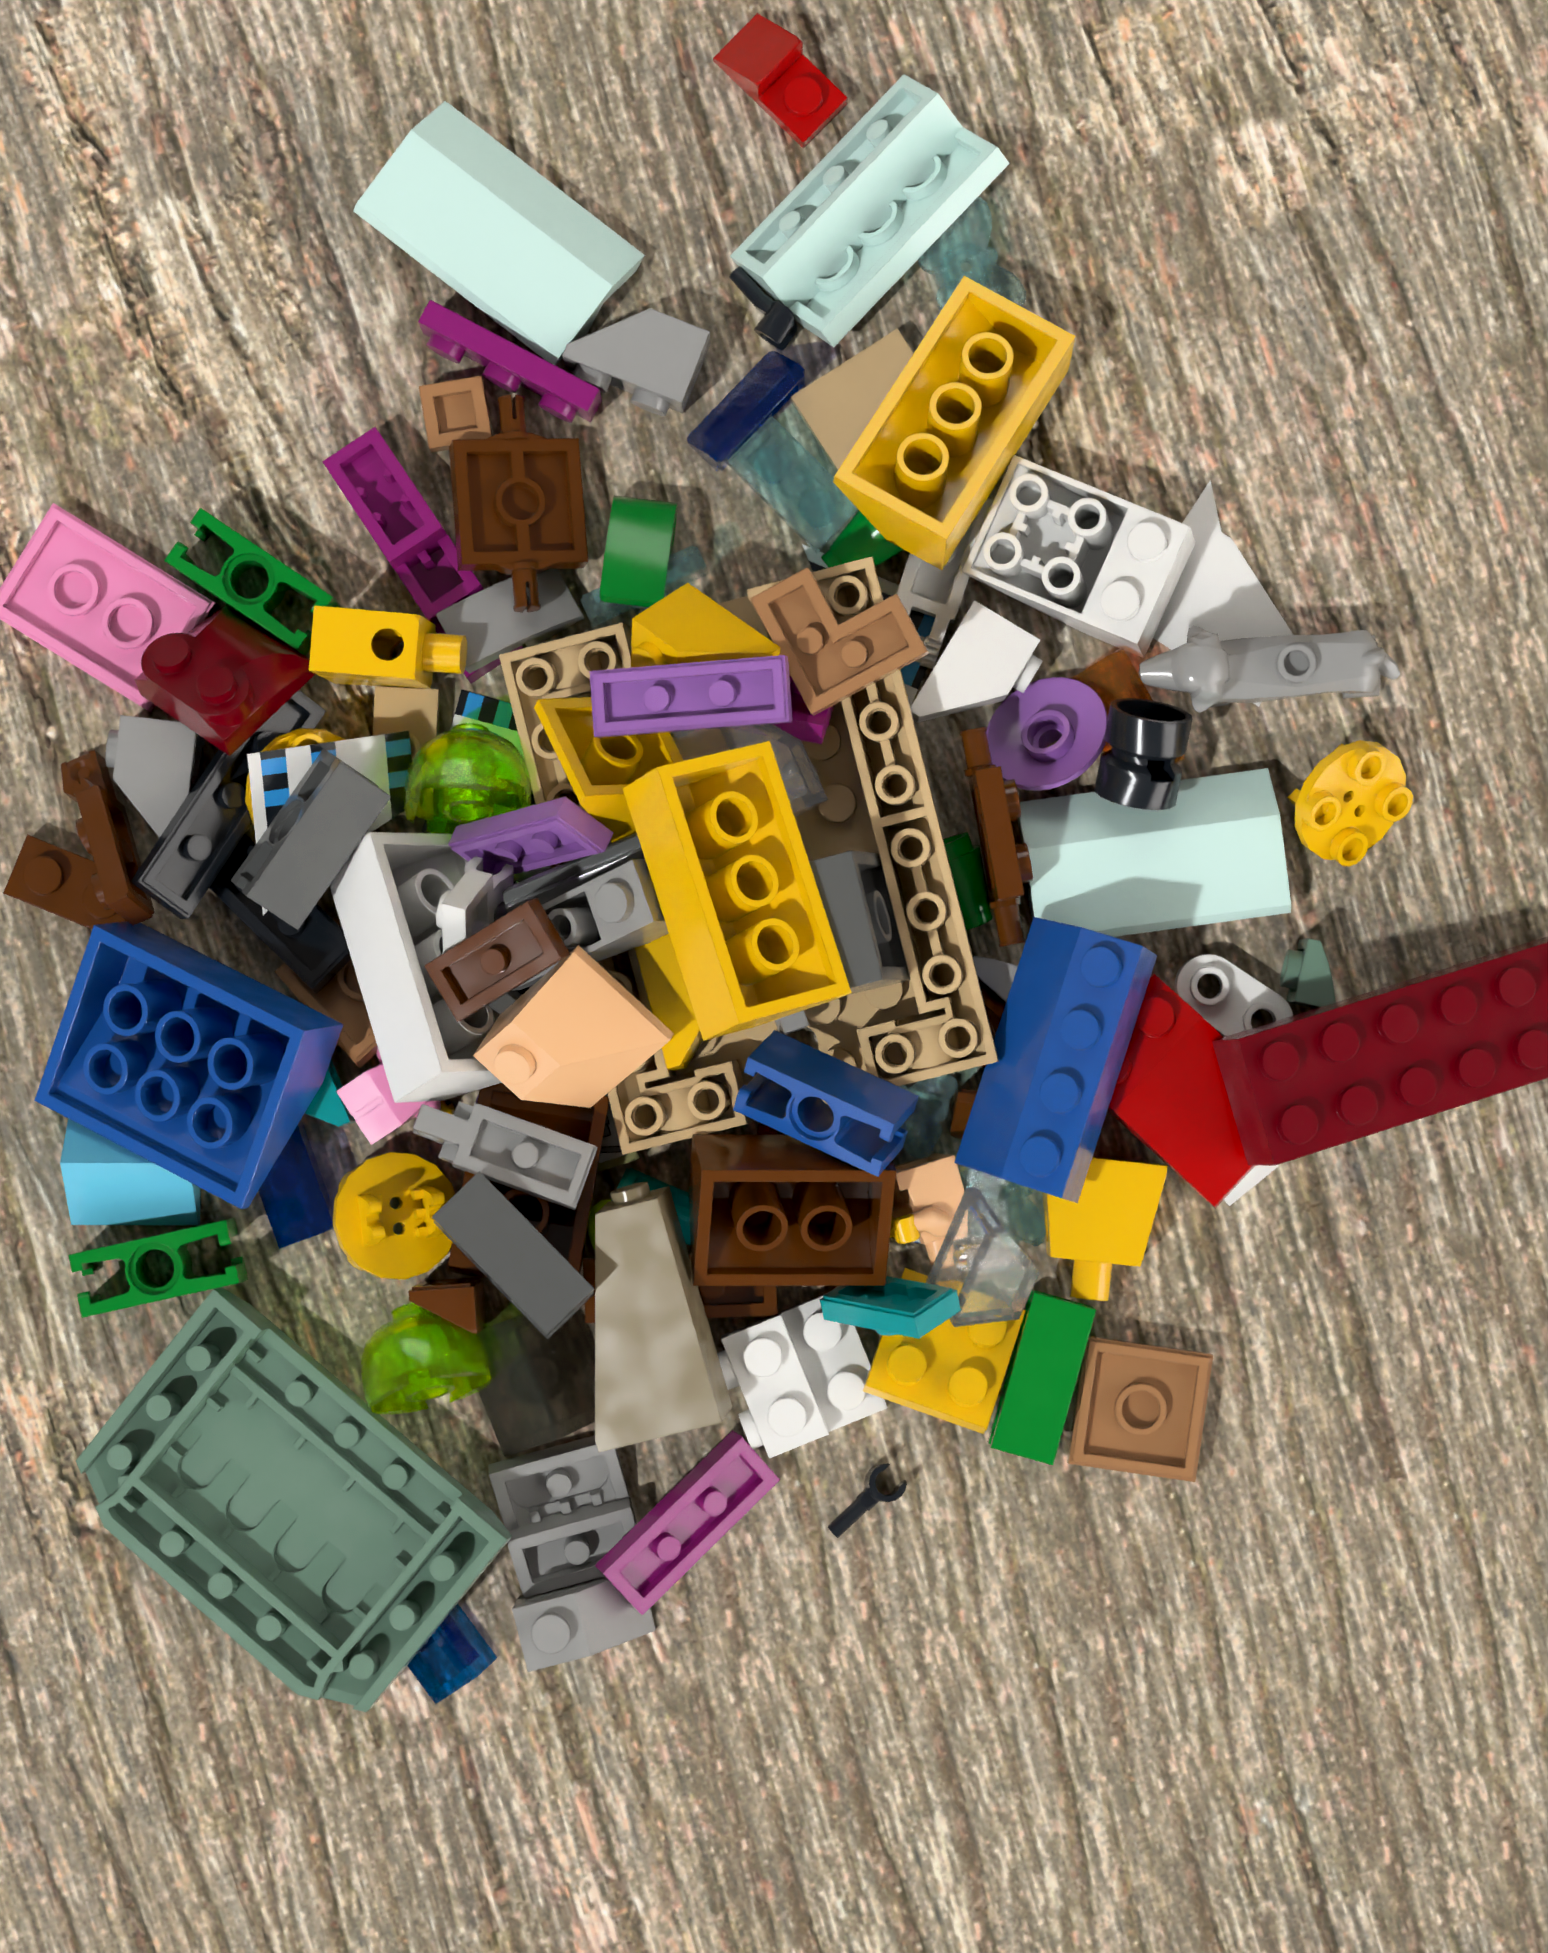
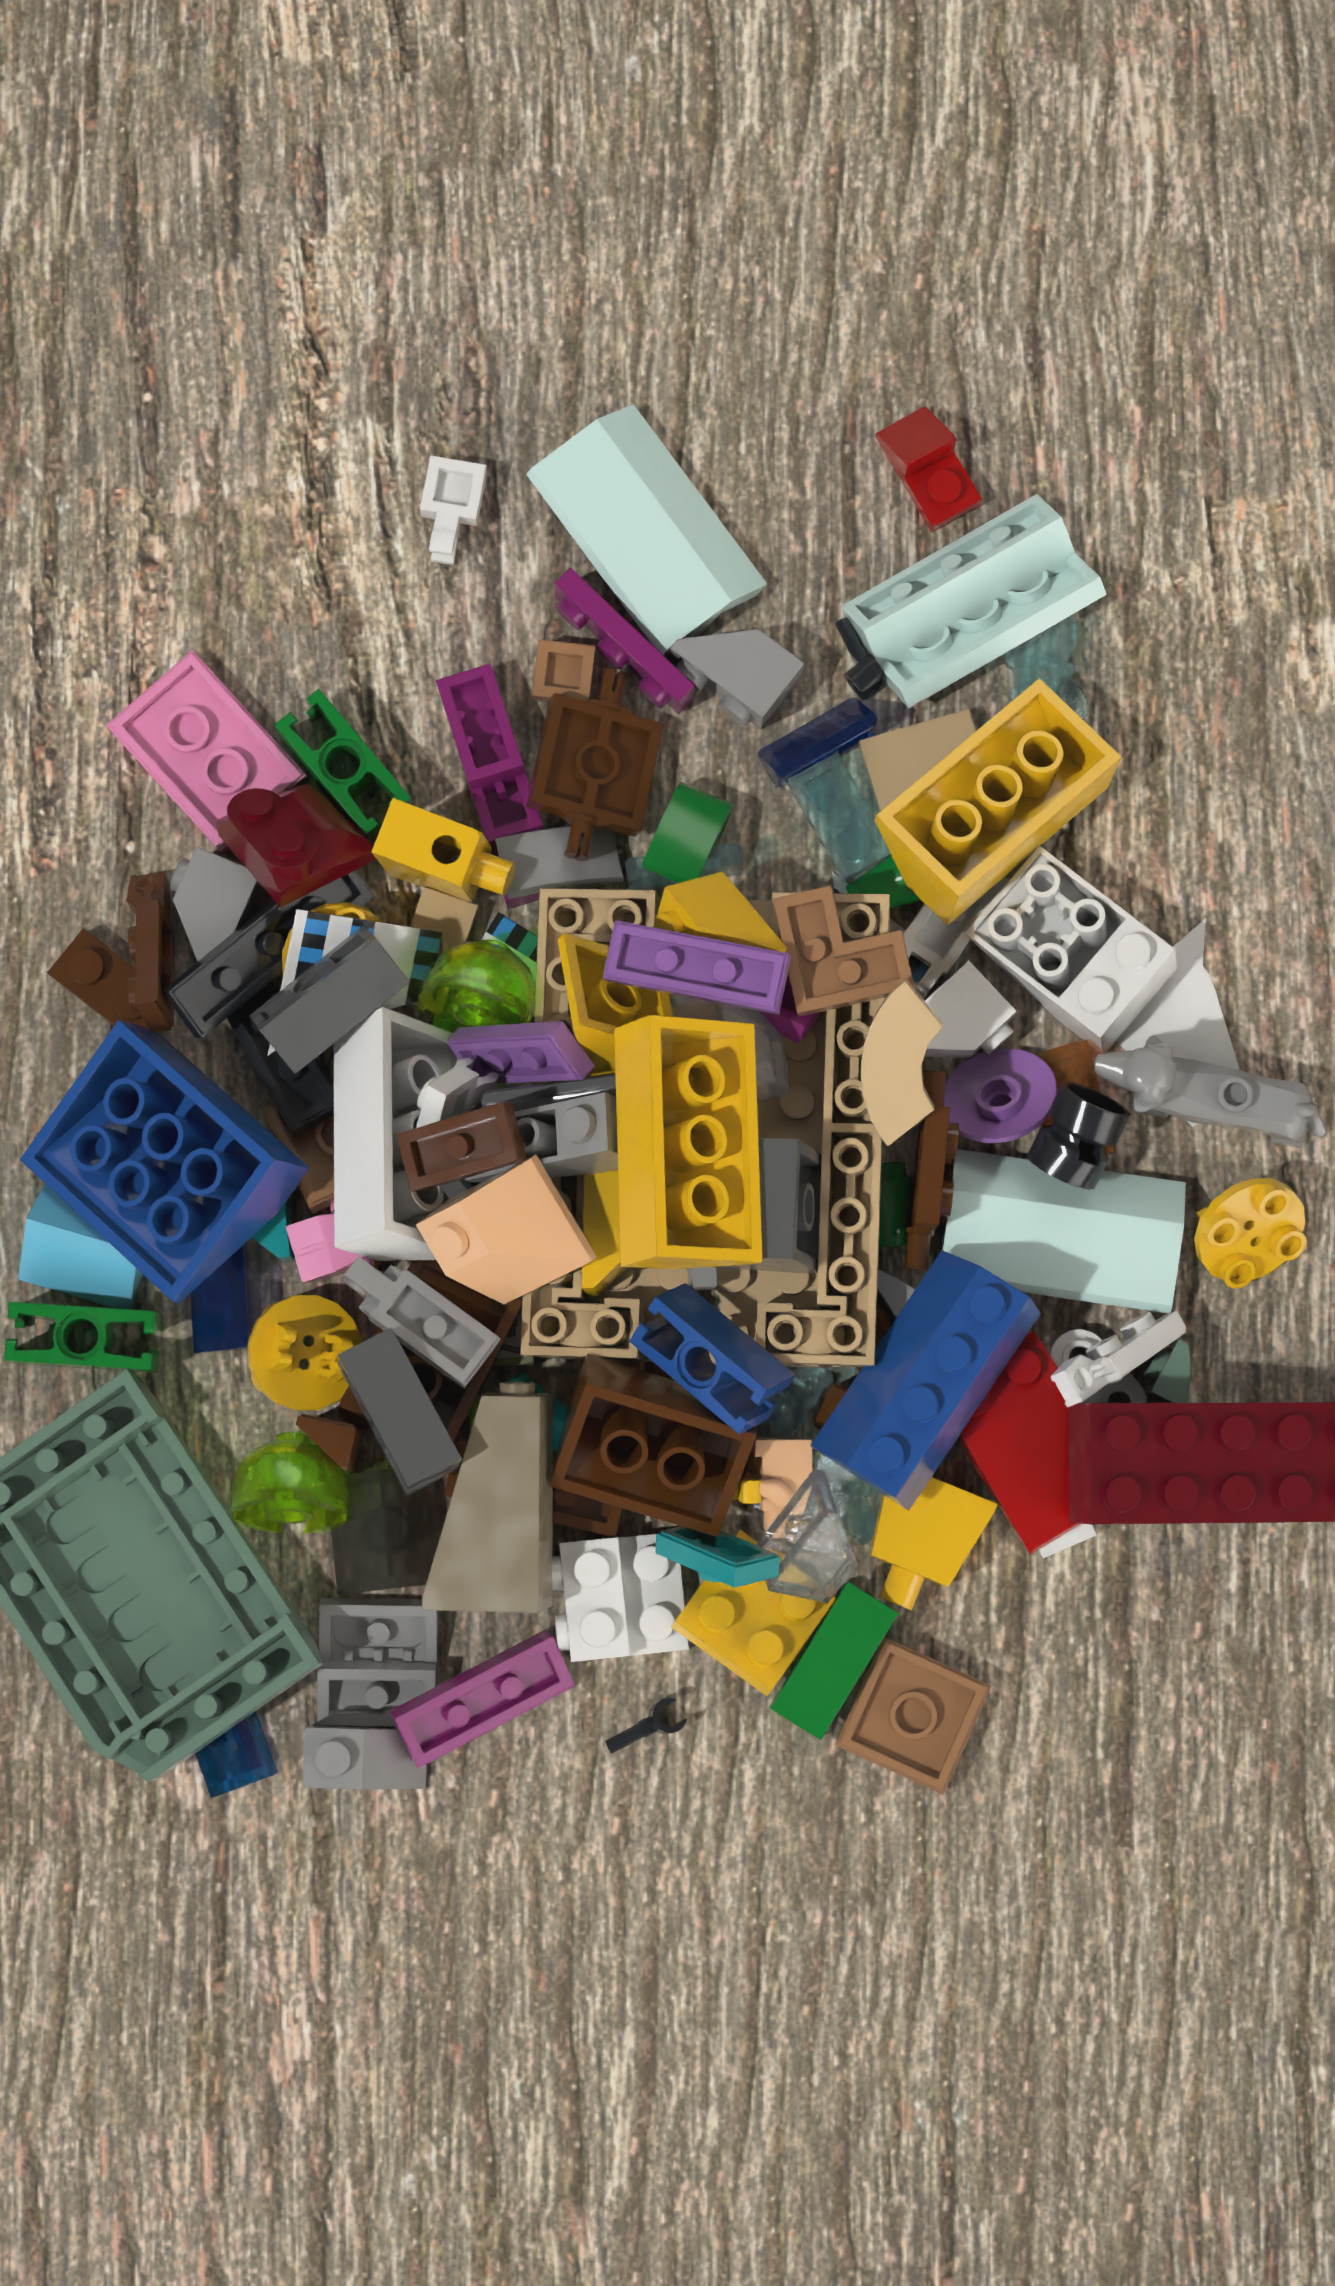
camera: 15 degrees right, 5 degrees down
(281, 259) = (452, 498): none -> white plate
(928, 735) = (894, 1061): none -> tan tile
(1249, 976) = (1115, 1358): none -> white hinge

